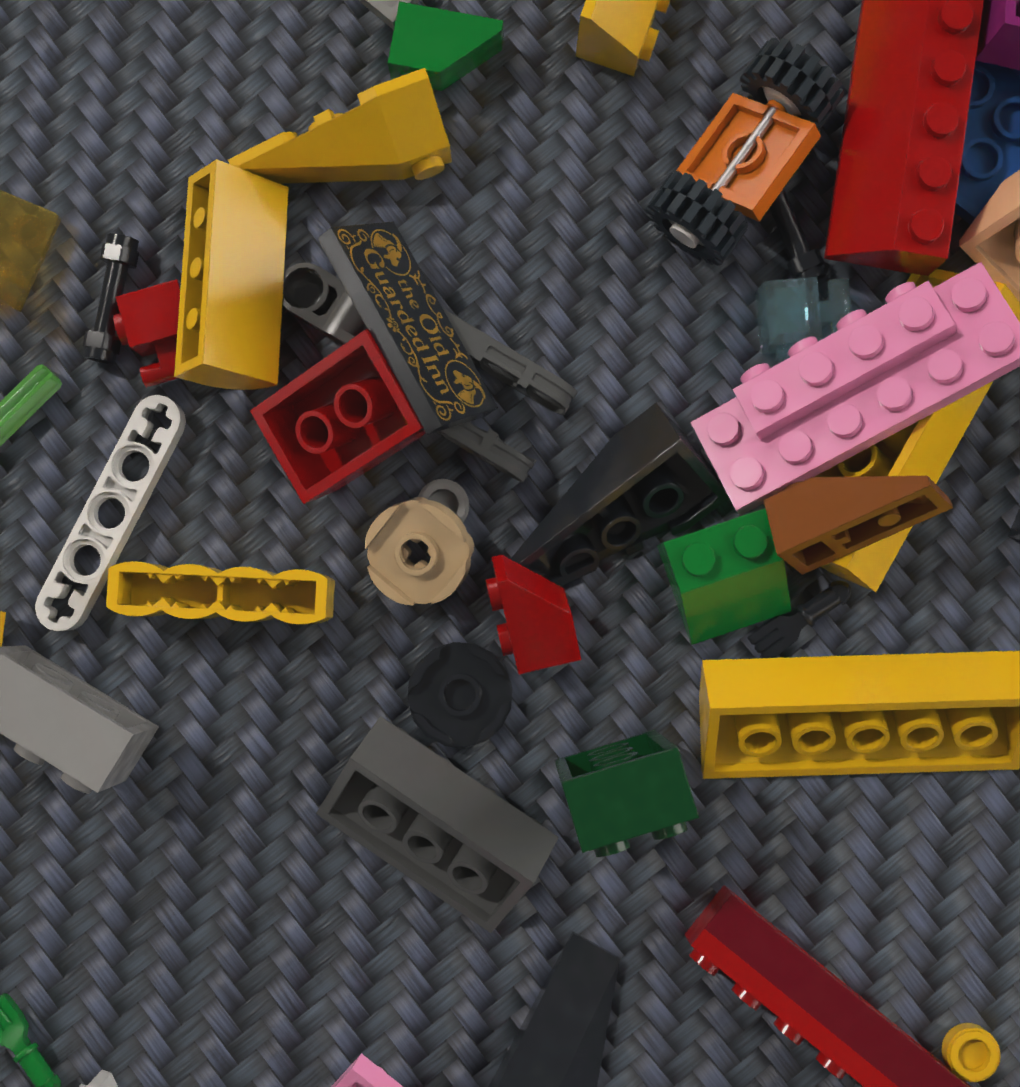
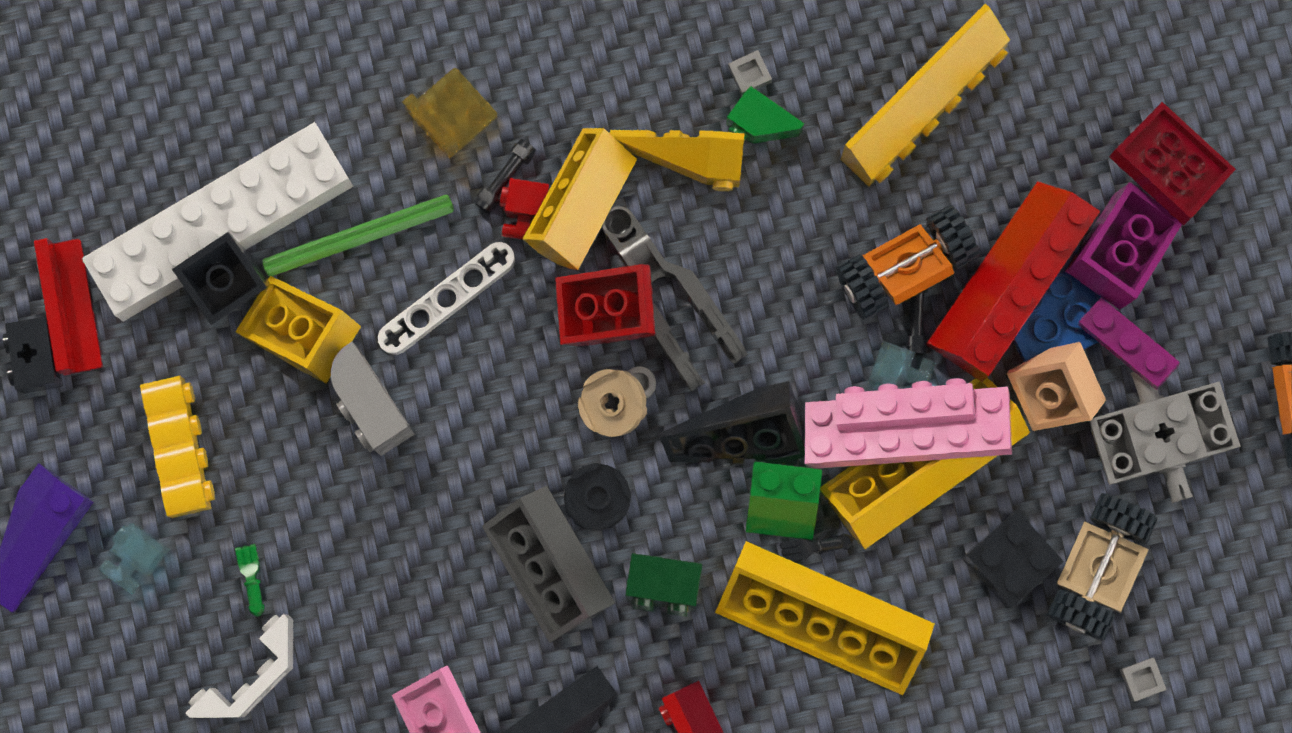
camera: 30 degrees right, 5 degrees down
(208, 593) = (480, 369): yellow brick -> none
(408, 324) = (668, 272): black tile -> none
(536, 614) = (662, 469): red slope -> none
(838, 515) = (860, 492): dark orange slope -> none

